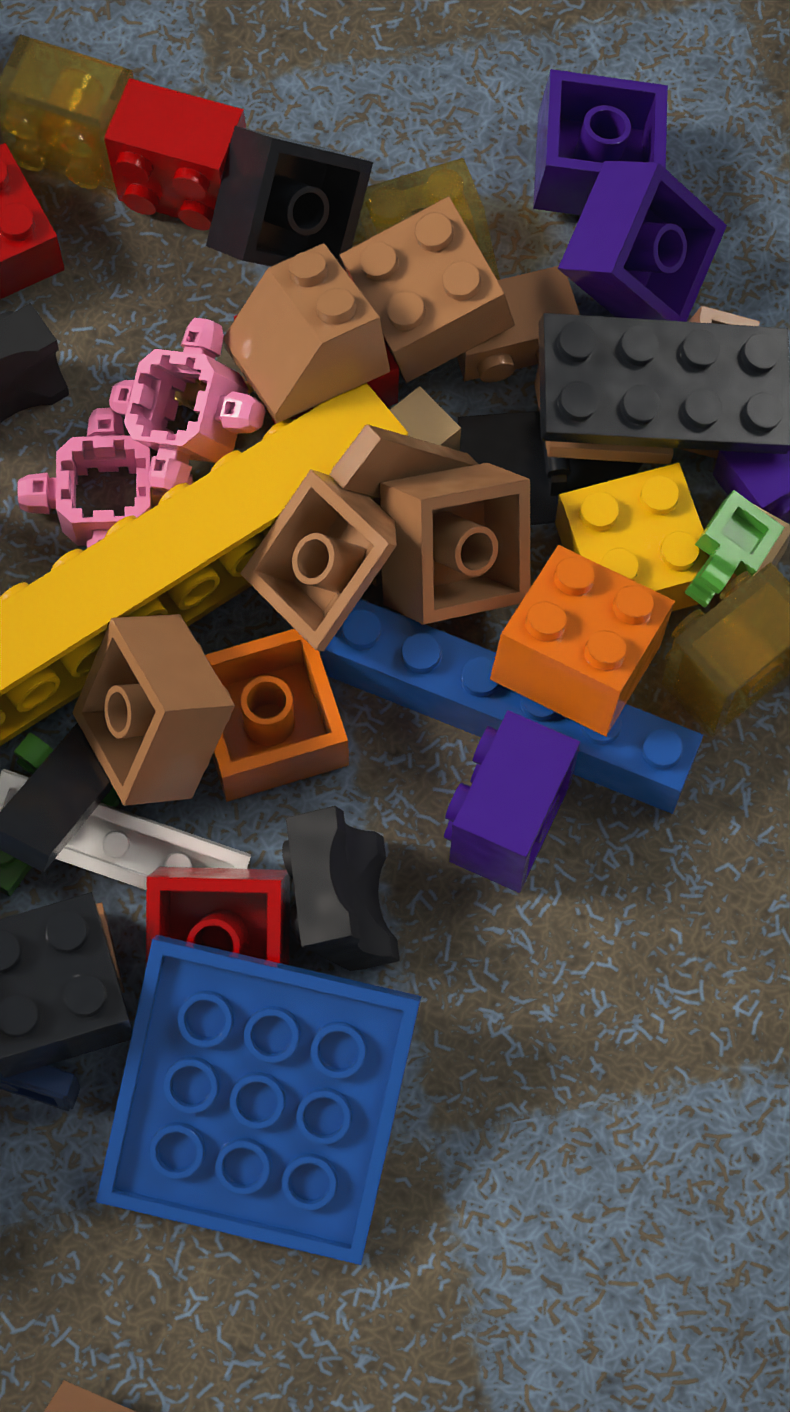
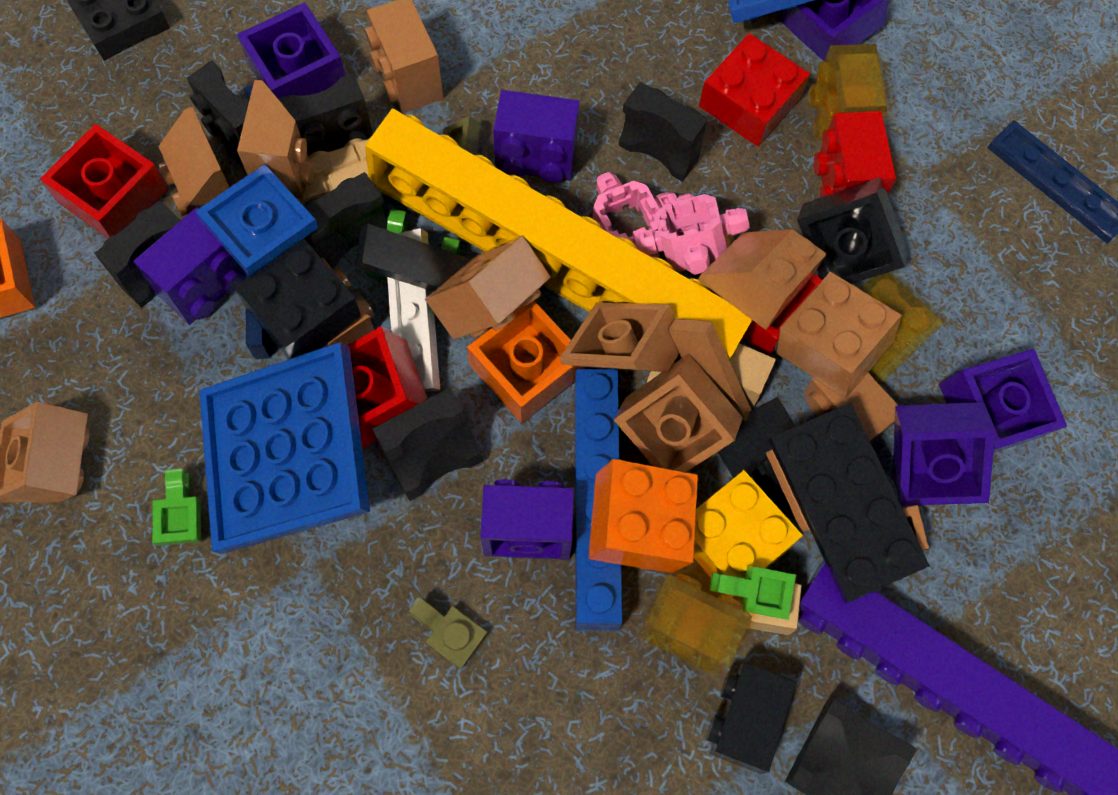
camera: 65 degrees right, 0 degrees up
(284, 1301) = (178, 516): none -> bright green plate
(614, 973) = (452, 635): none -> olive plate

